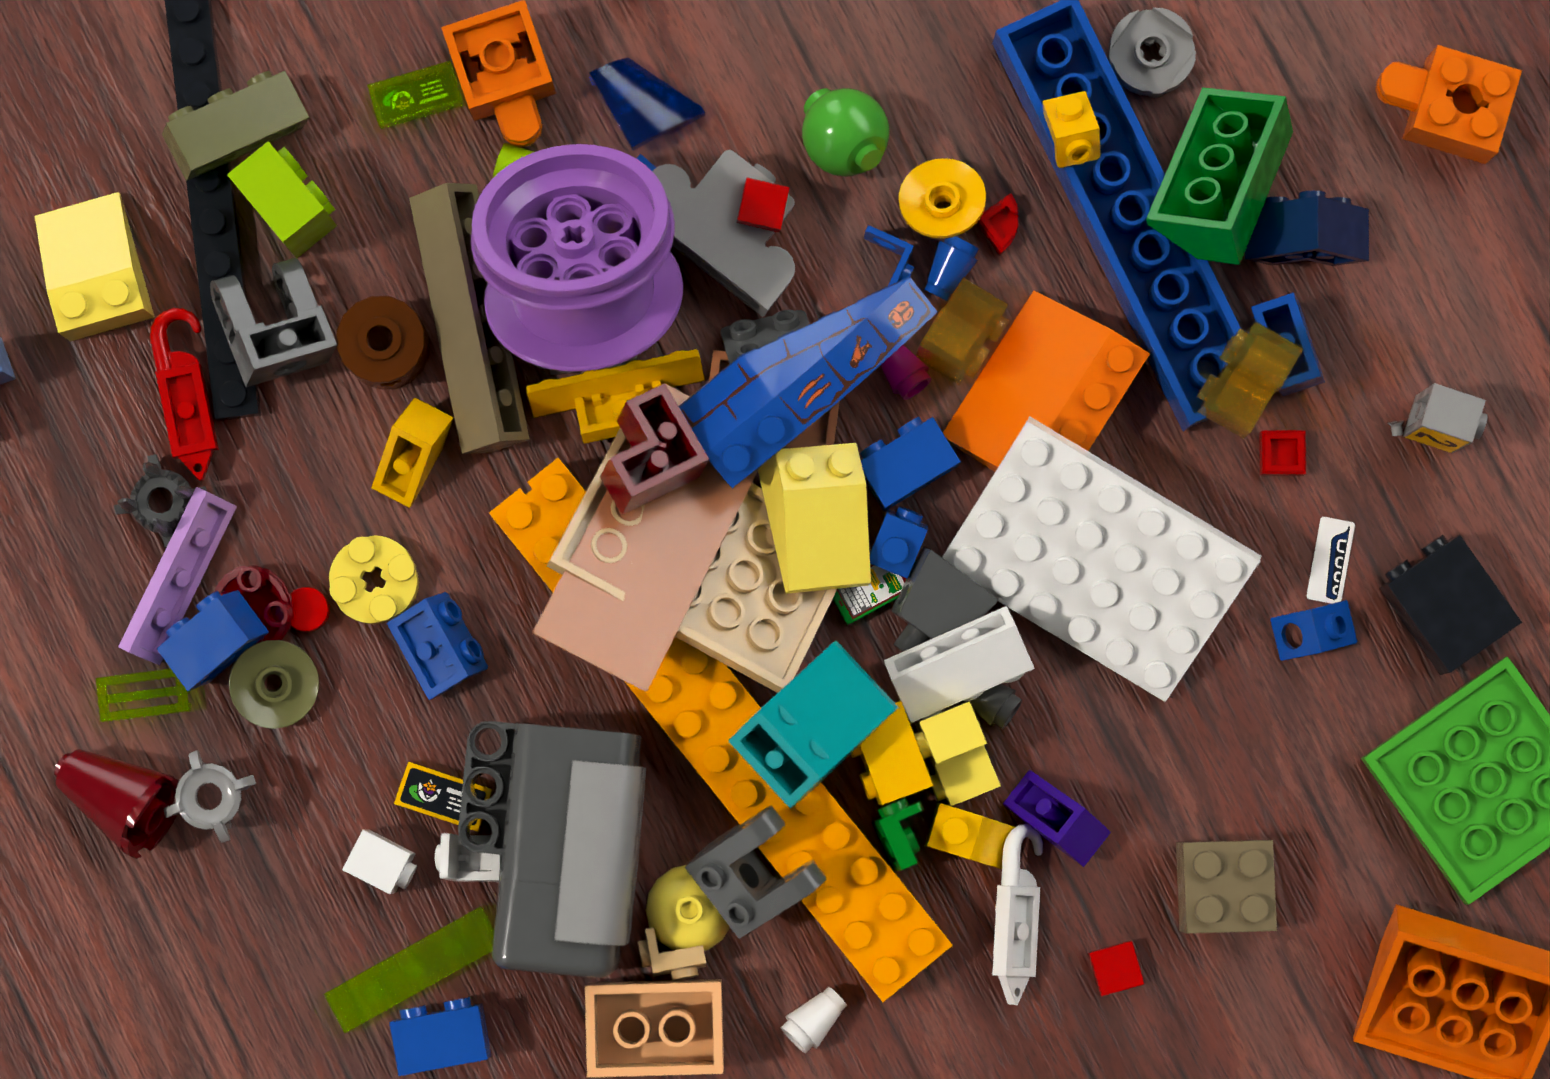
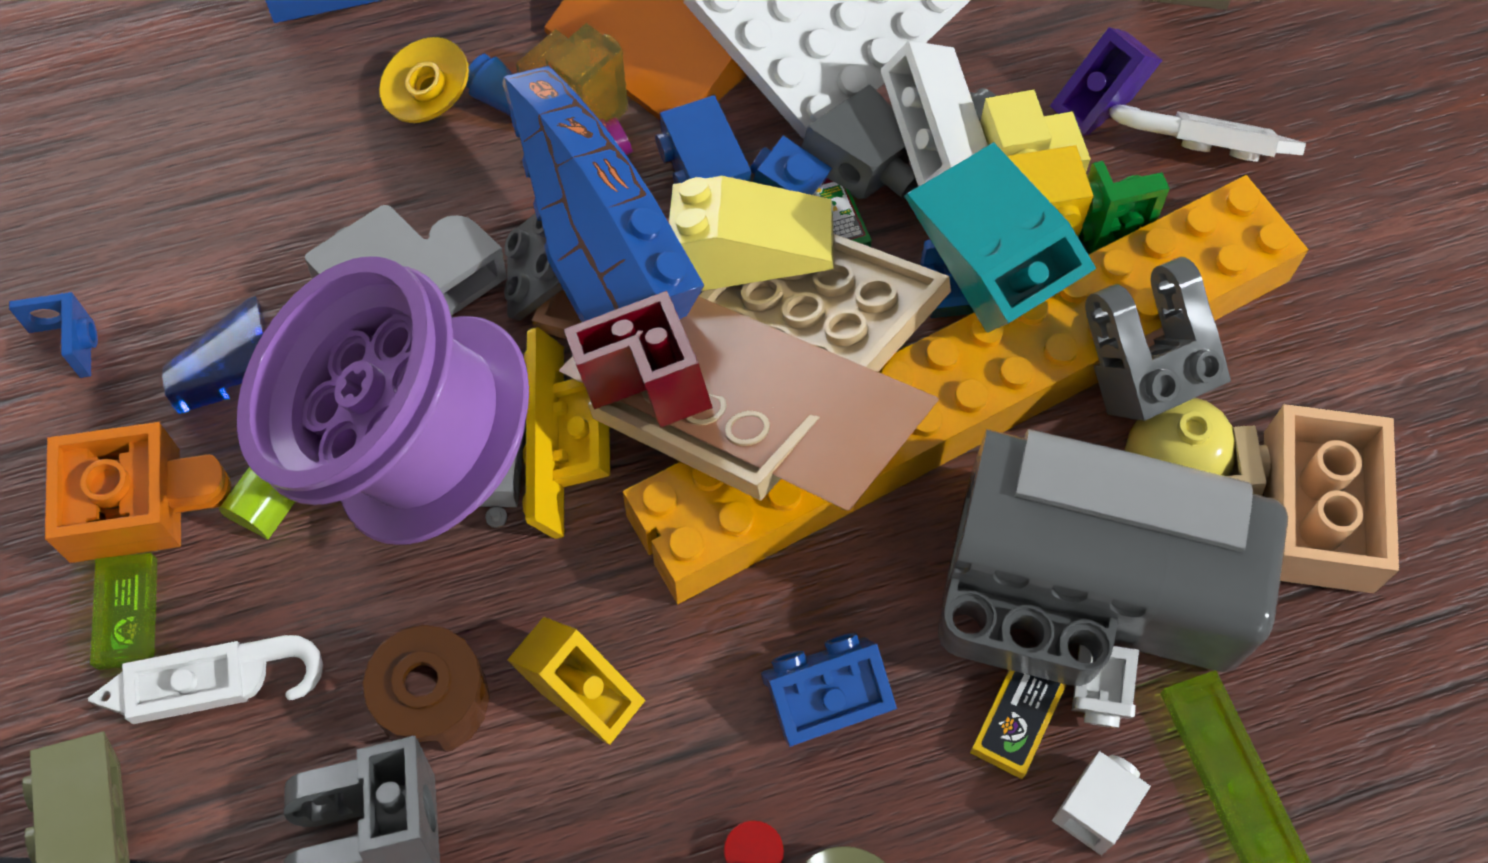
camera: 80 degrees left, 20 degrees down
(276, 190) = (198, 781): lime brick -> none
(363, 556) = (737, 790): light yellow plate -> none
(369, 175) = (204, 678): none -> white plate
(441, 1037) = (1334, 760): blue brick -> none
(475, 362) = (422, 580): dark tan brick -> none
(762, 205) = (379, 228): red tile -> none
(813, 1020) = (1317, 341): white cone -> none
(844, 131) = (321, 149): bright green brick -> none
(894, 245) = (478, 125): blue bracket -> none
(967, 835) = (1122, 151): yellow slope -> none
(1000, 223) = (469, 41): red tile -> none
(1116, 968) = (1265, 61): red tile -> none

